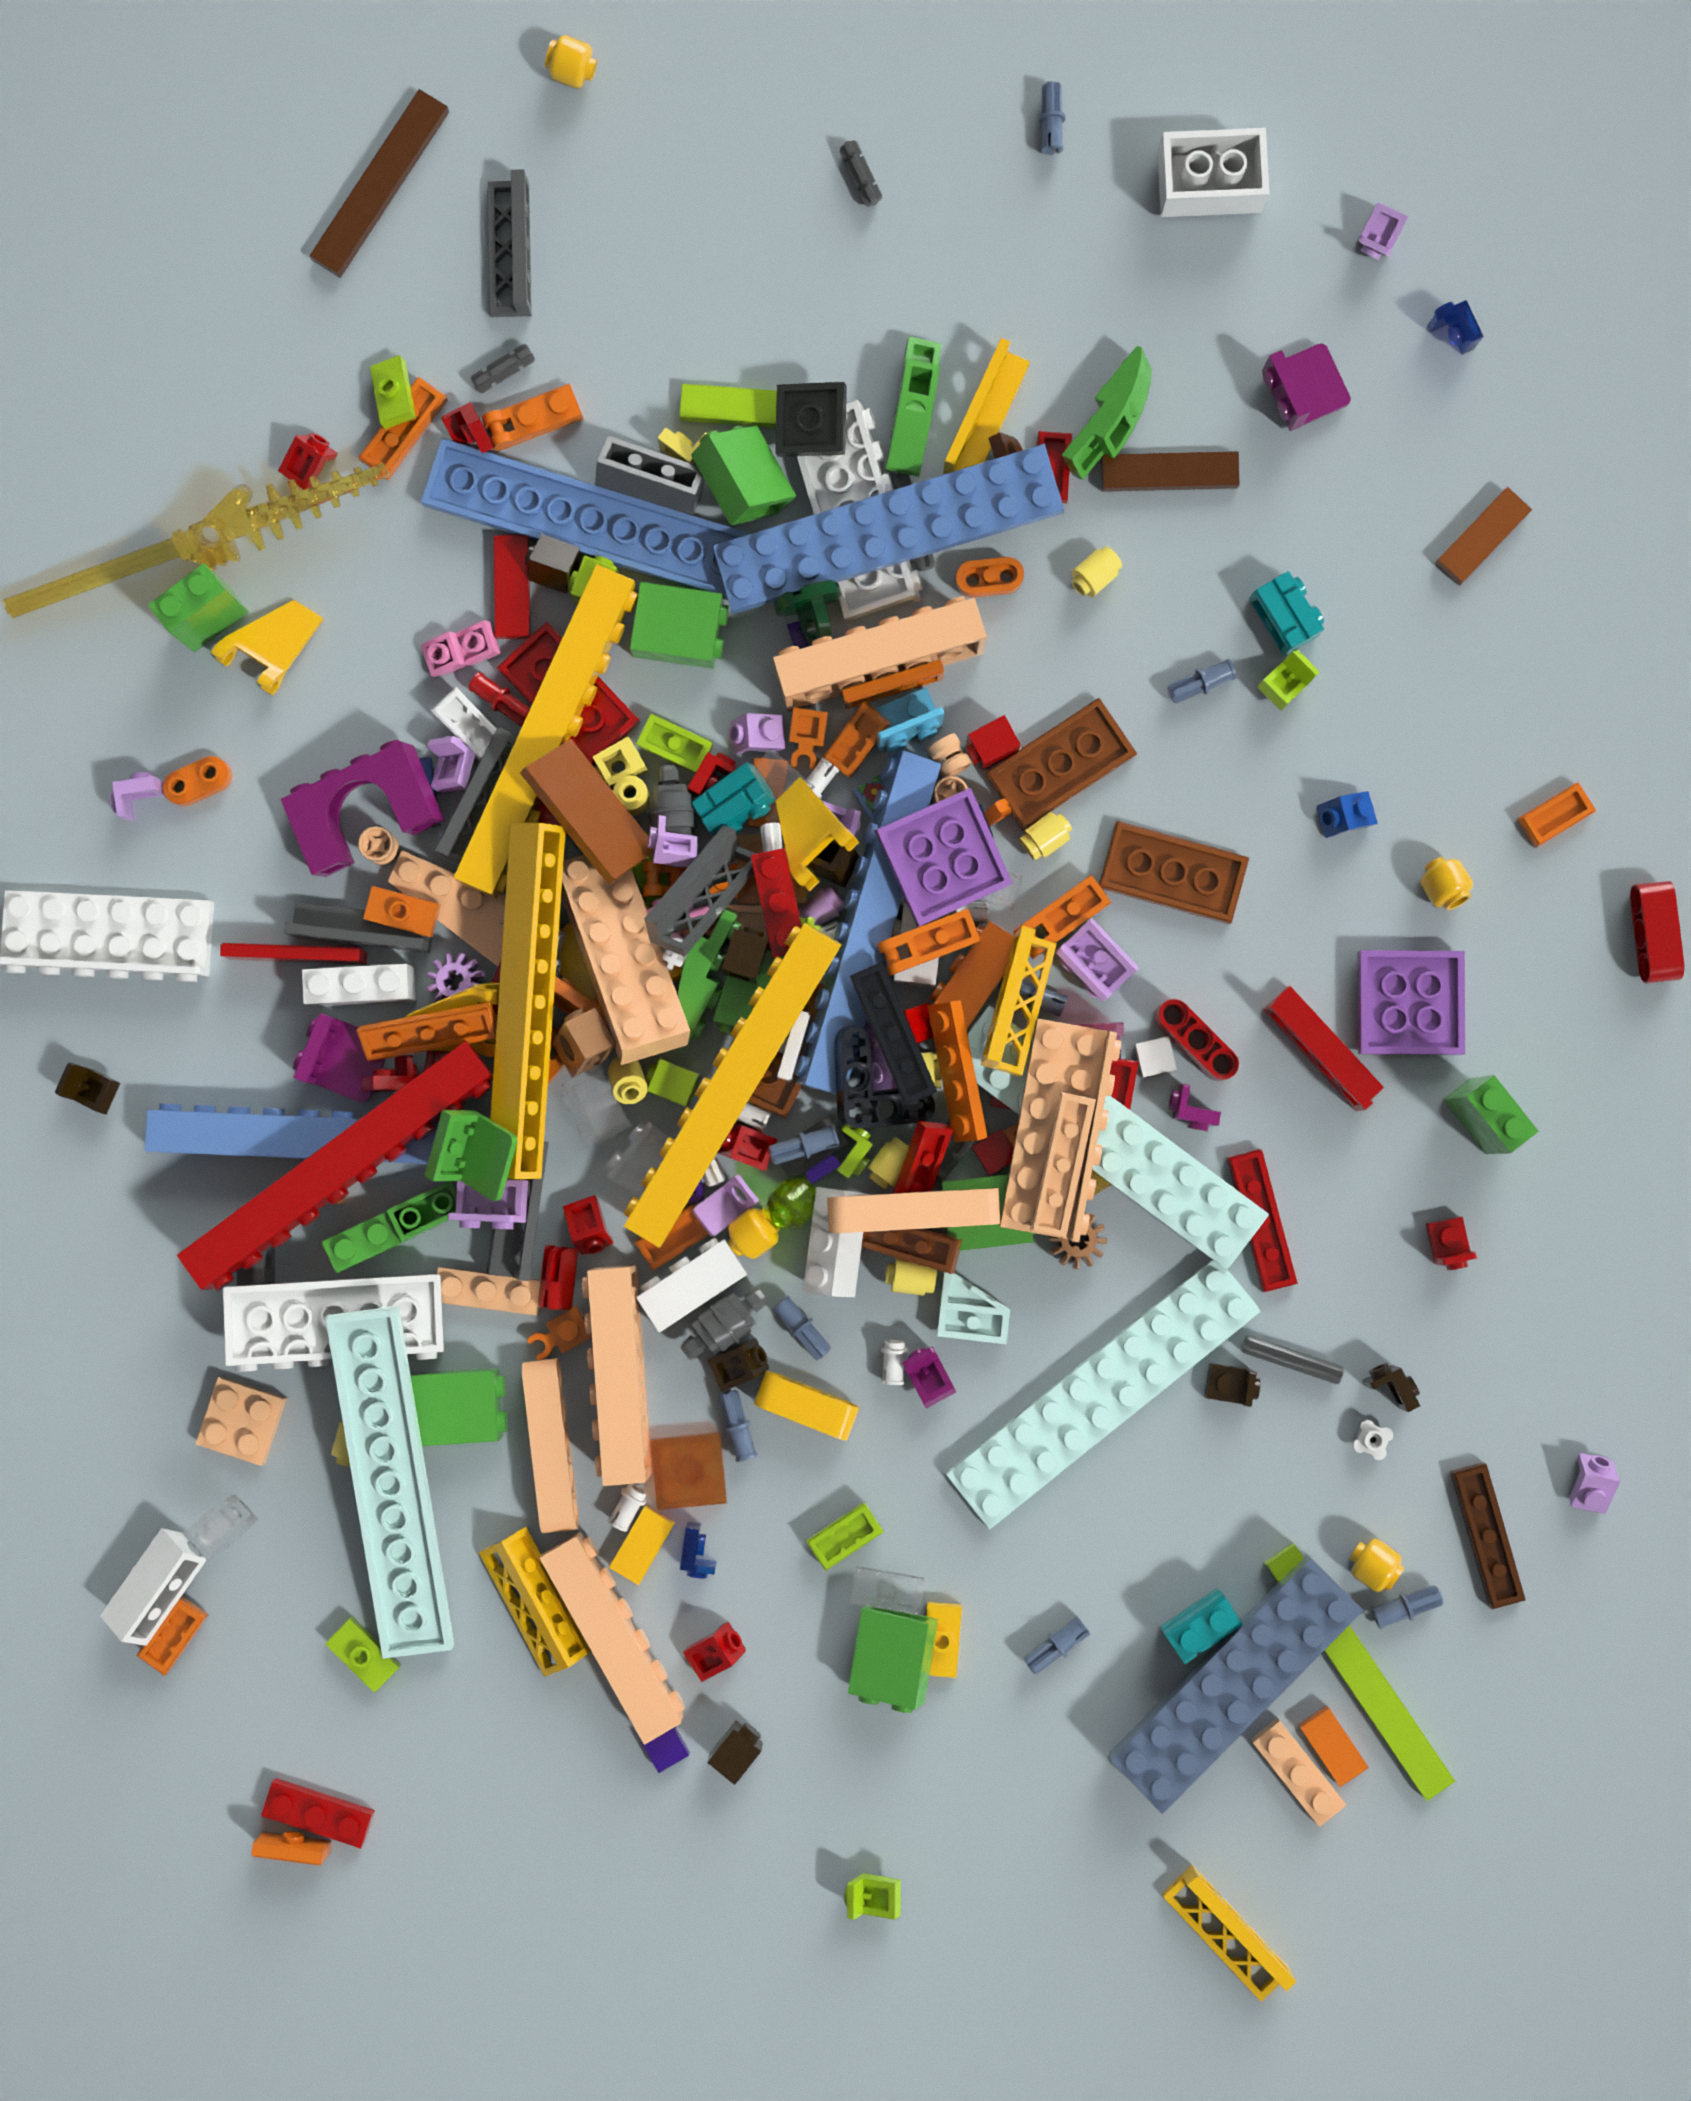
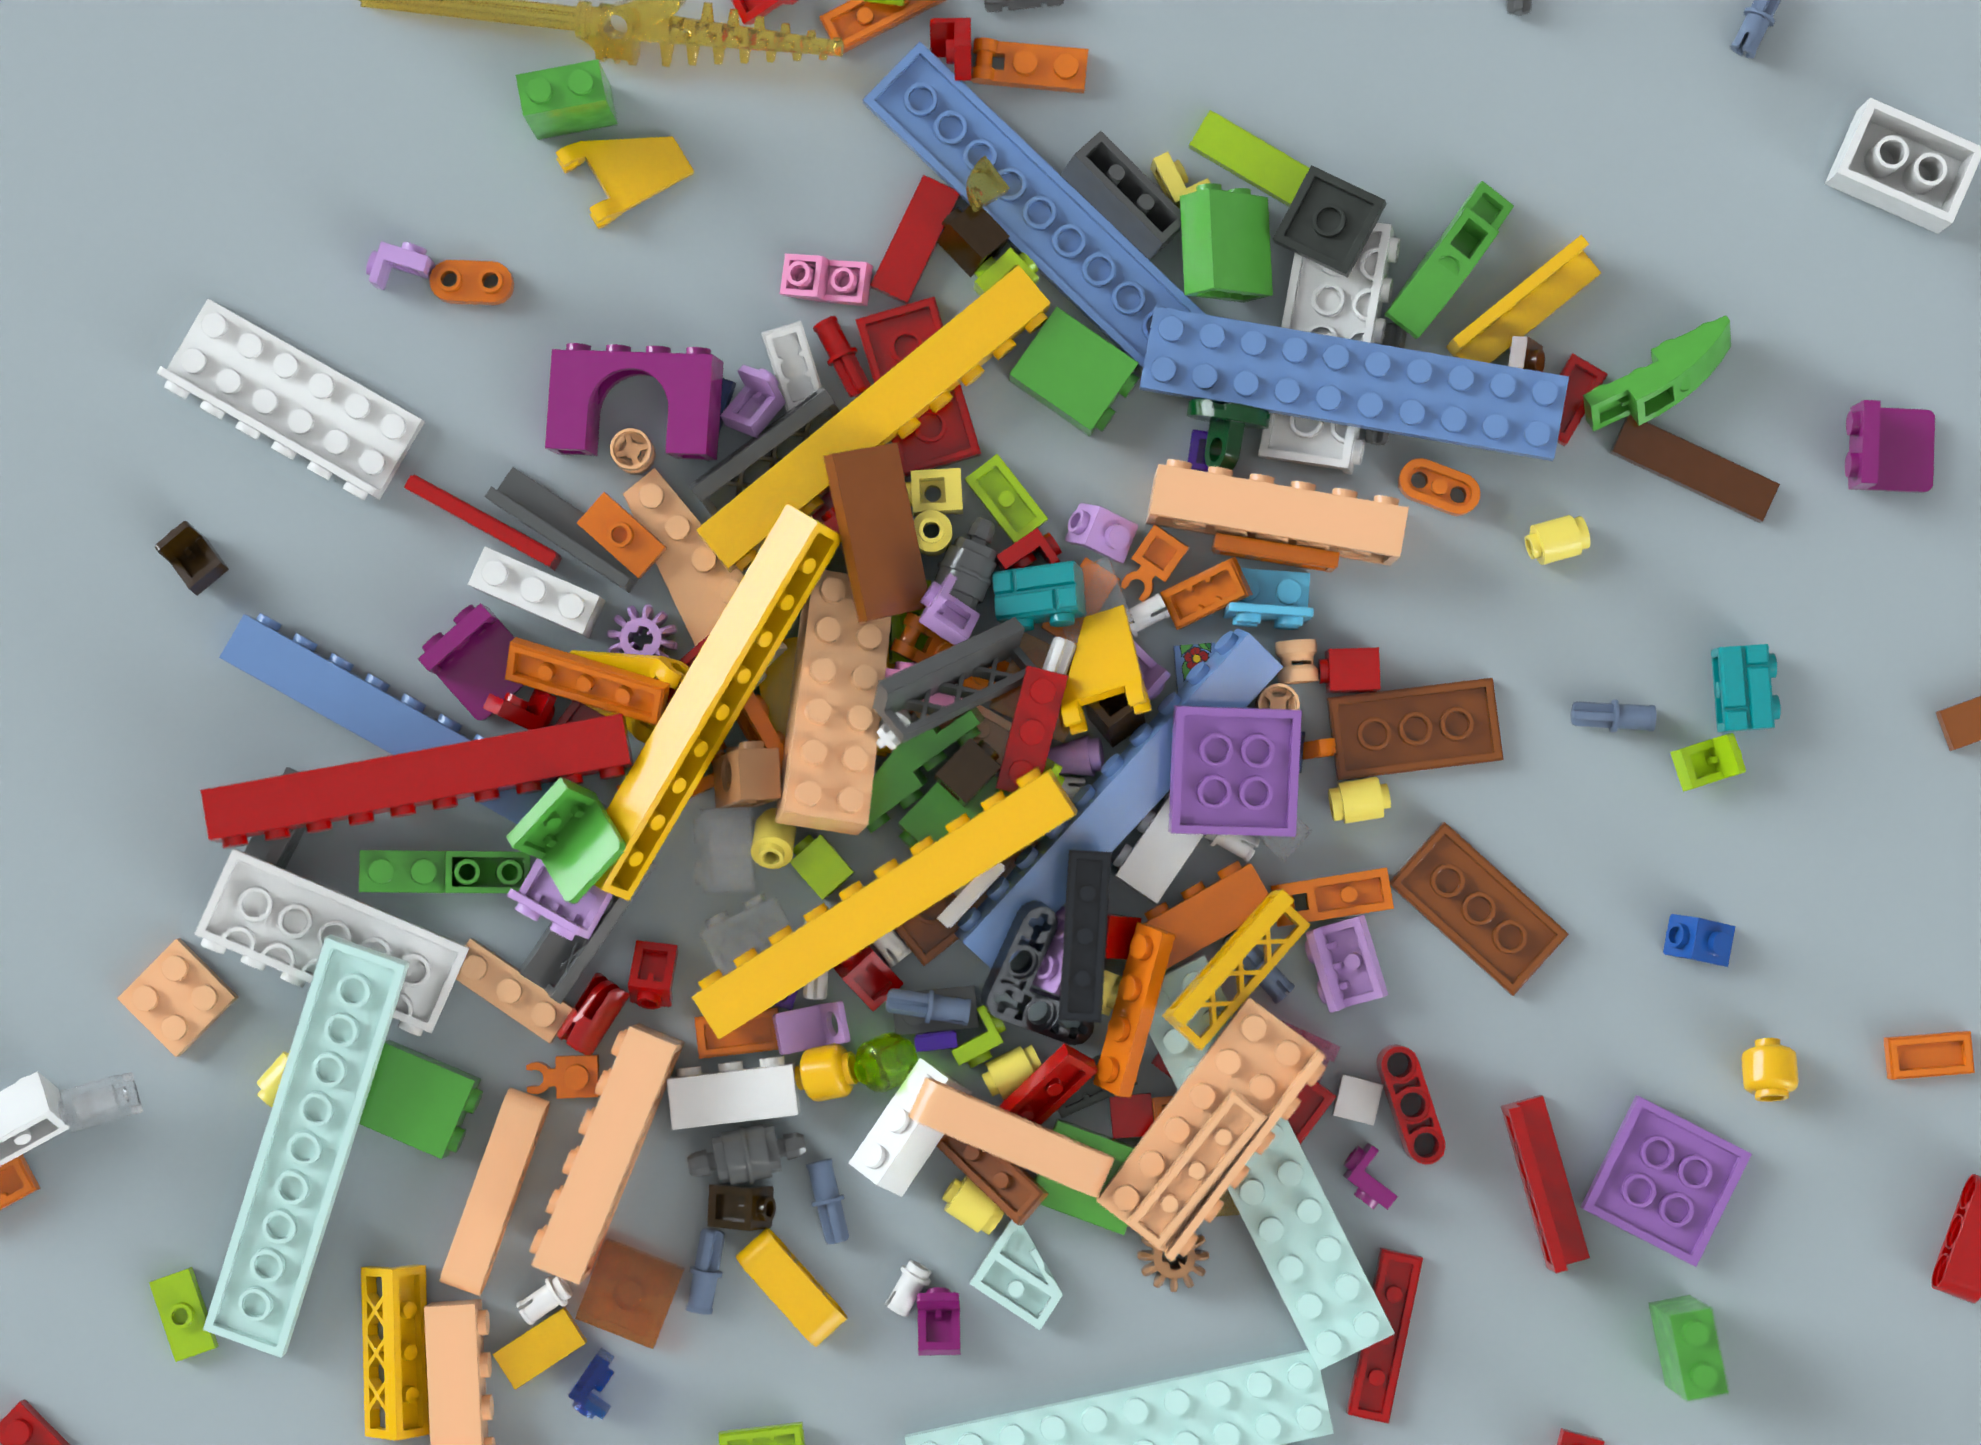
camera: 25 degrees right, 0 degrees up
(542, 519) = (984, 185): none -> clear yellow tile
(930, 941) = (1174, 855): orange plate -> none

